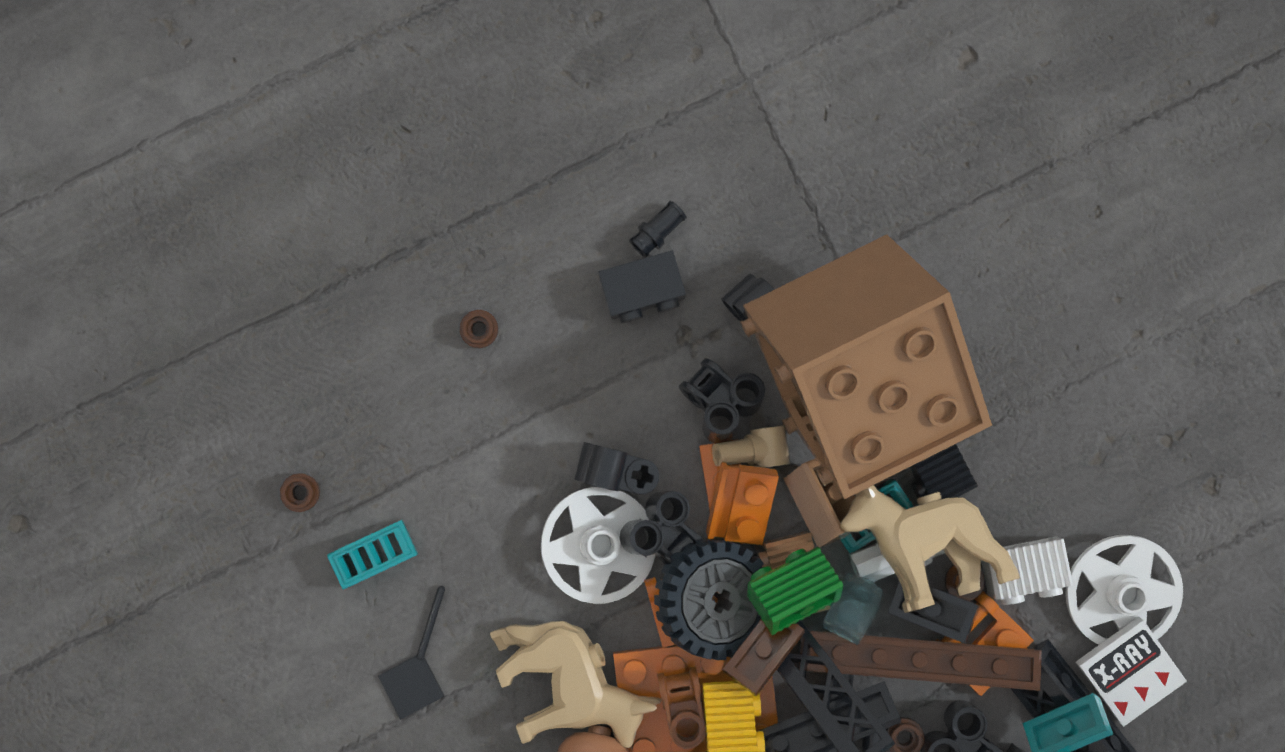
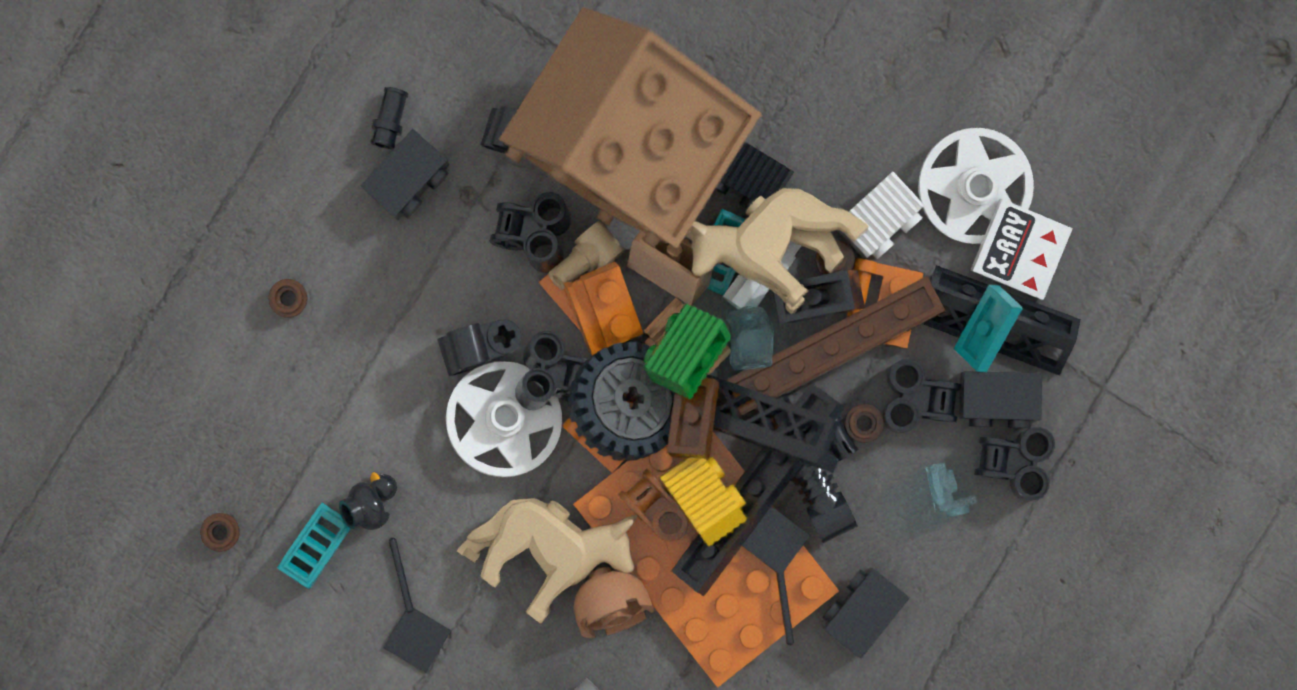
camera: 30 degrees left, 0 degrees up
(436, 543) = (365, 503): none -> black animal

